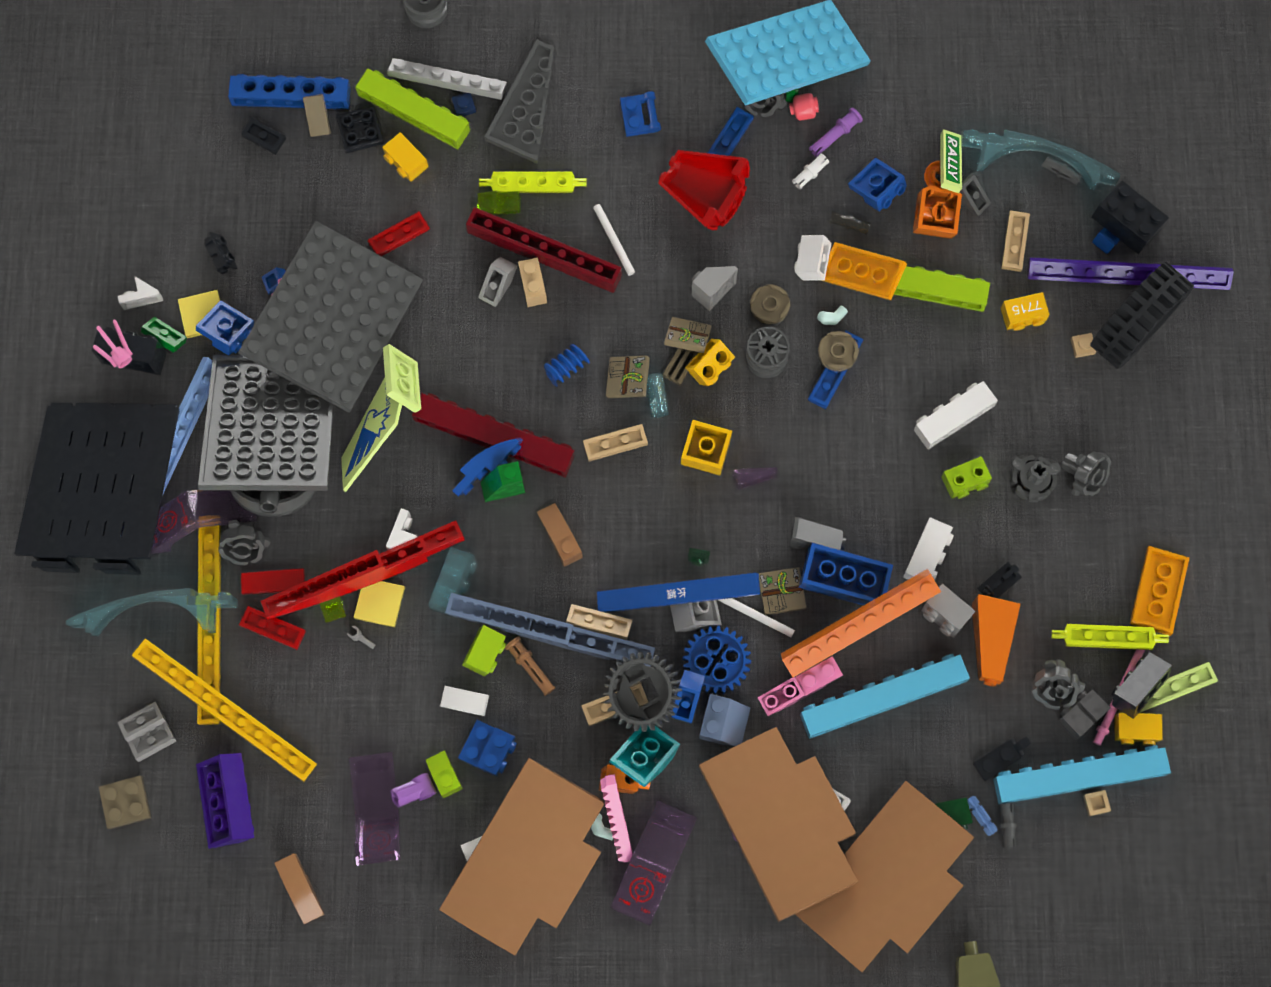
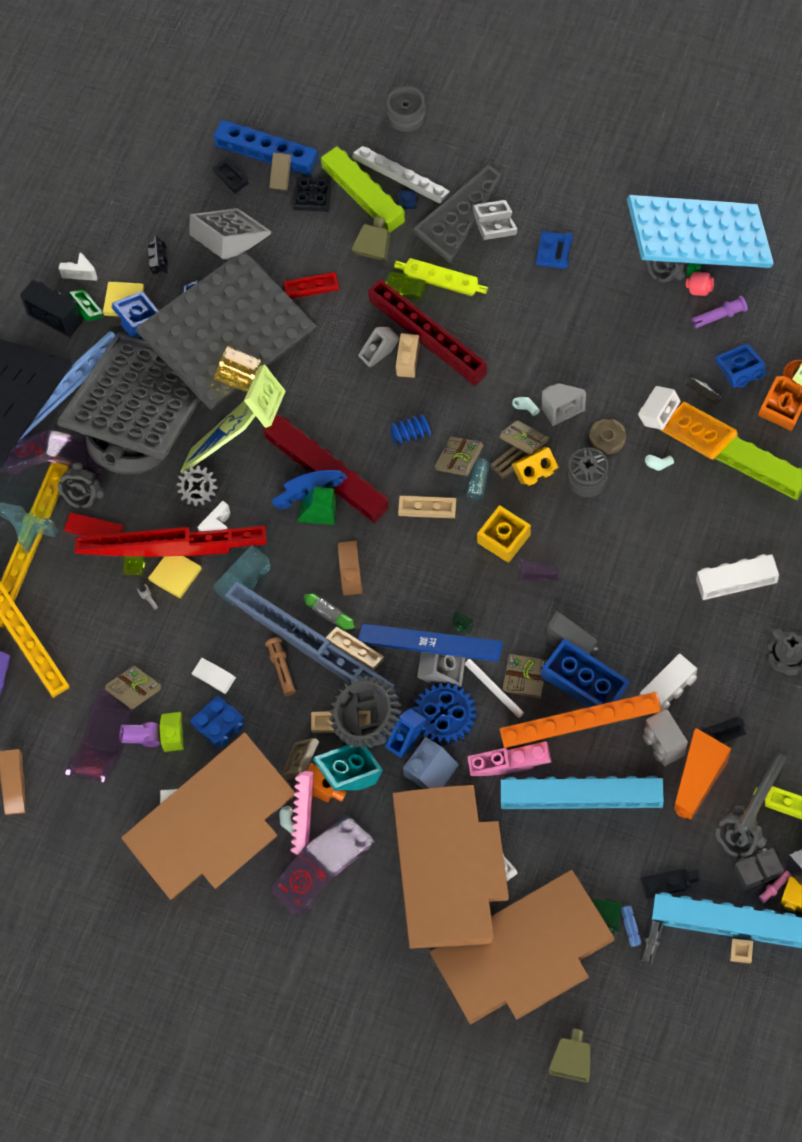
camera: 25 degrees right, 10 degrees down
(120, 356) = (40, 305): bright pink plant -> none
(272, 628) = (77, 564): red plate -> none
(288, 204) = (227, 231): none -> light grey slope
(363, 359) = (237, 369): none -> clear yellow slope
(374, 504) = (191, 479): none -> light grey gear
(386, 743) = (133, 687): none -> dark tan tile
(405, 157) = (340, 225): yellow brick -> none
(447, 164) = (373, 241): none -> olive torso
(484, 651) = (246, 639): lime brick -> none
(557, 590) = (329, 611): none -> piece
(566, 100) = (494, 219): none -> light grey slope
(590, 760) = (299, 758): none -> dark tan tile
(614, 240) = (492, 343): white bar -> none
(674, 295) = (525, 403): none -> light aqua arm
(707, 185) = (589, 321): red cone -> none
(731, 133) = (626, 289): blue tile -> none
(810, 171) = (685, 338): white pin -> none
(829, 382) = (644, 507): blue tile -> none
(838, 351) = (651, 491): dark tan tile -> none
(966, 477) = (727, 632): lime brick -> none
(1064, 639) = (761, 793): none -> dark grey axle

